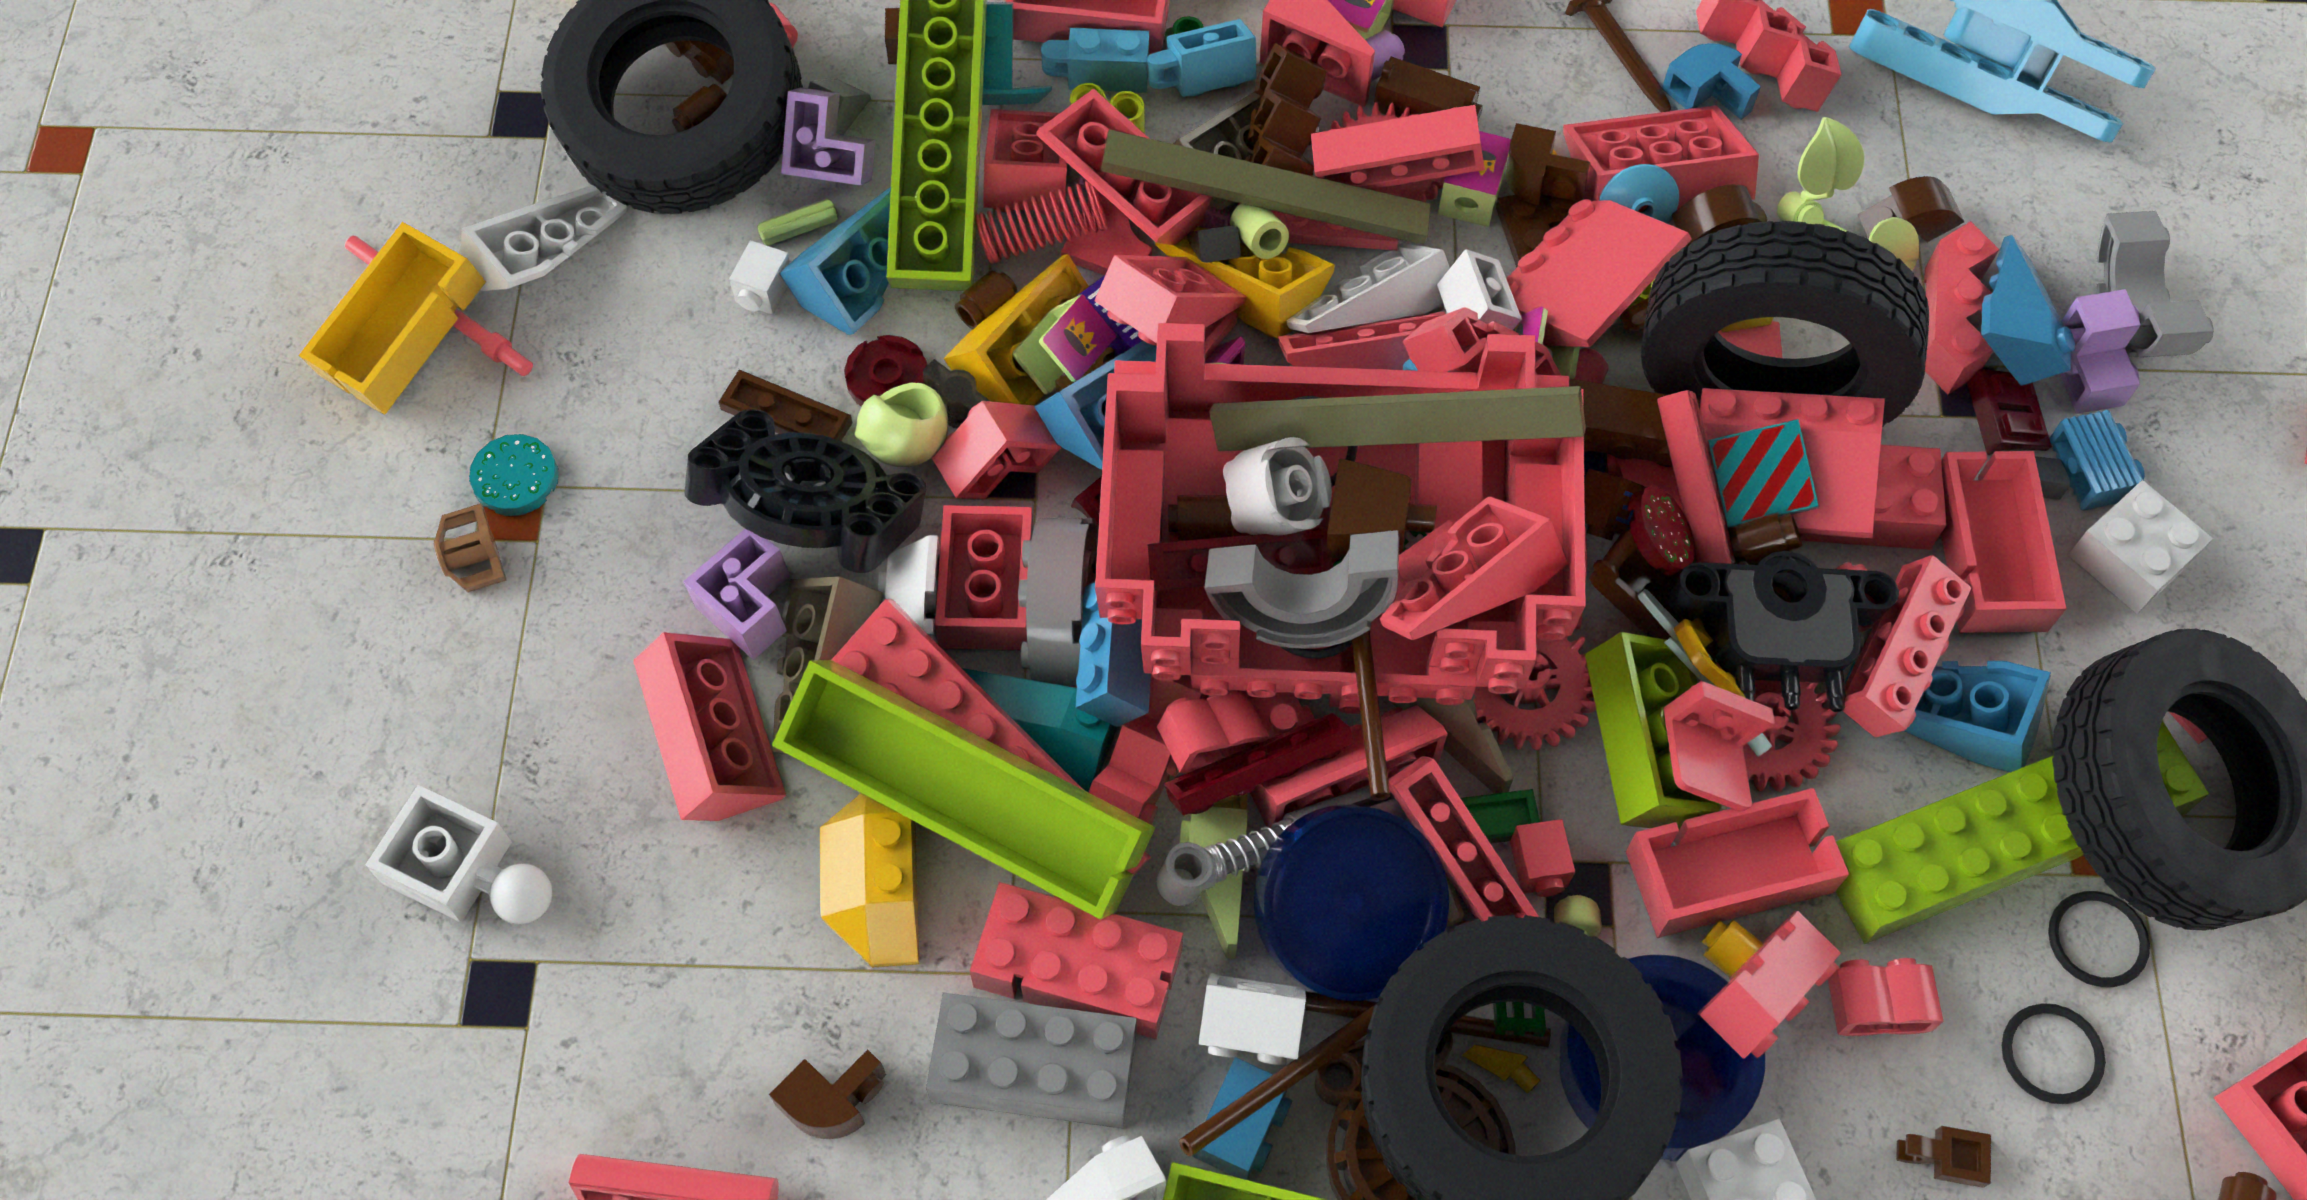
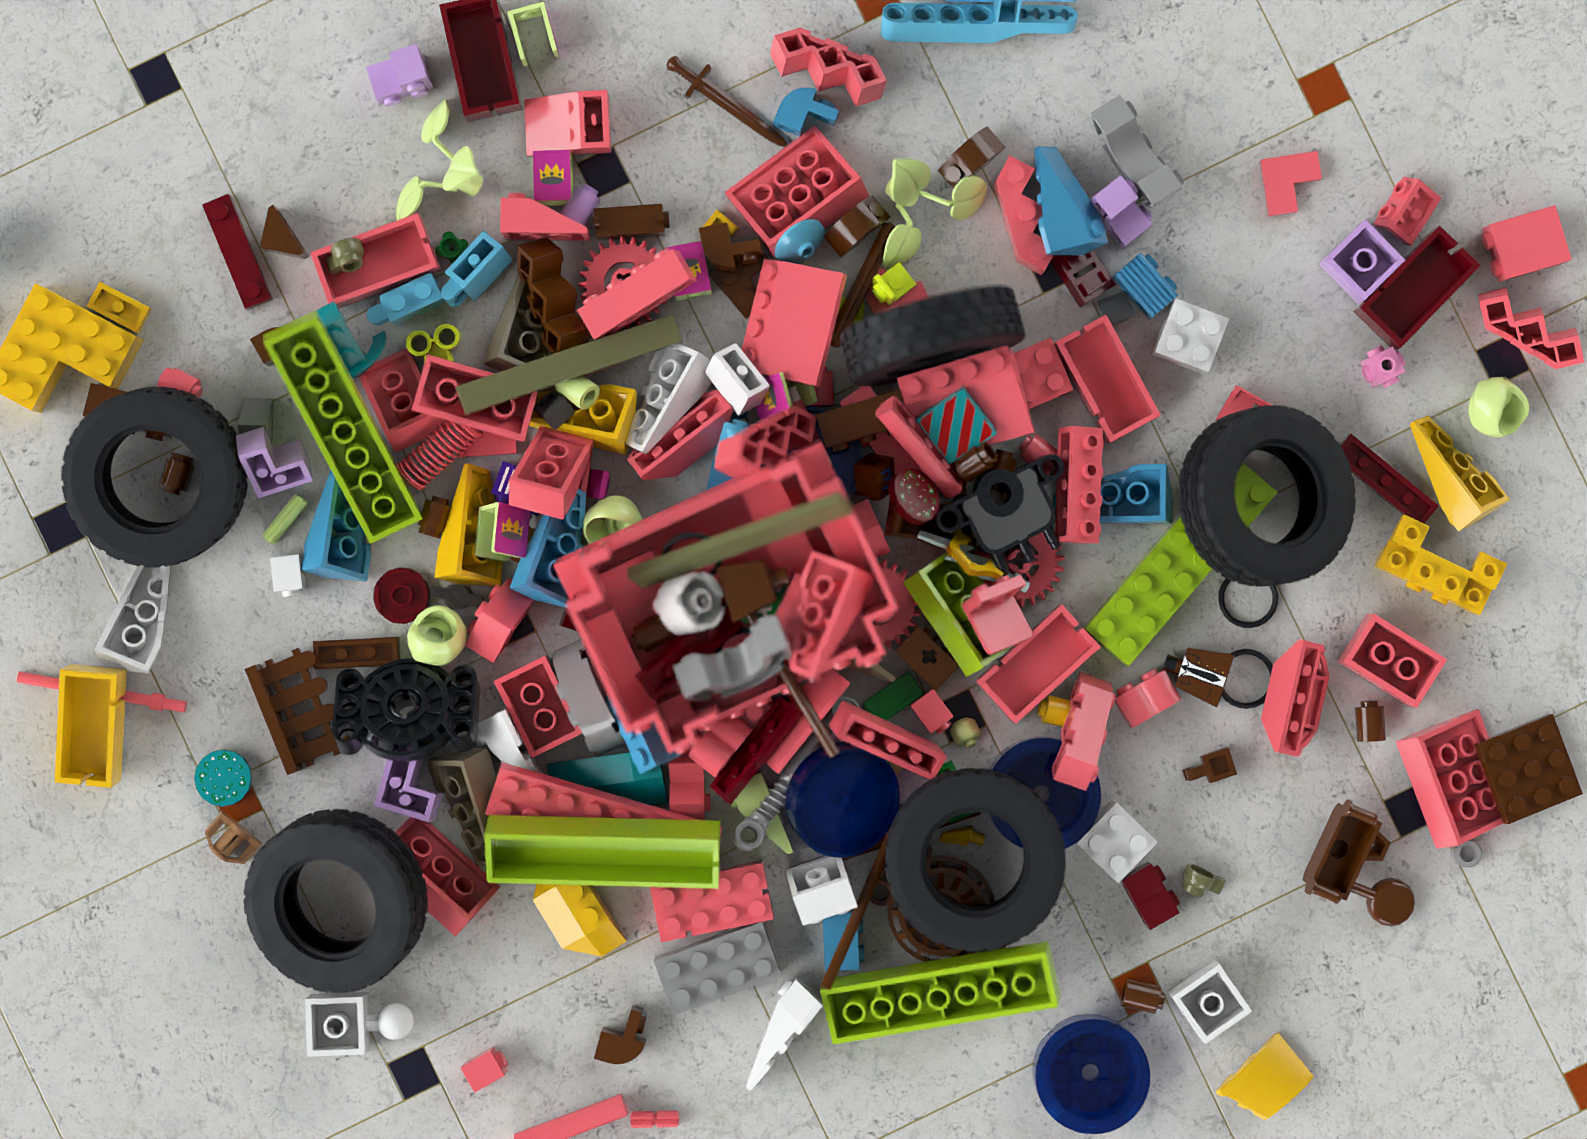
camera: 25 degrees left, 25 degrees up
(476, 622) = (288, 936): none -> black tyre
(601, 1032) = (485, 1068): none -> coral brick
(636, 413) = (271, 705): none -> reddish brown fence
(1570, 755) = (910, 652): none -> reddish brown brick
(1990, 1003) = (1201, 673): none -> reddish brown torso
(2135, 1105) = (1295, 697): none -> coral wedge

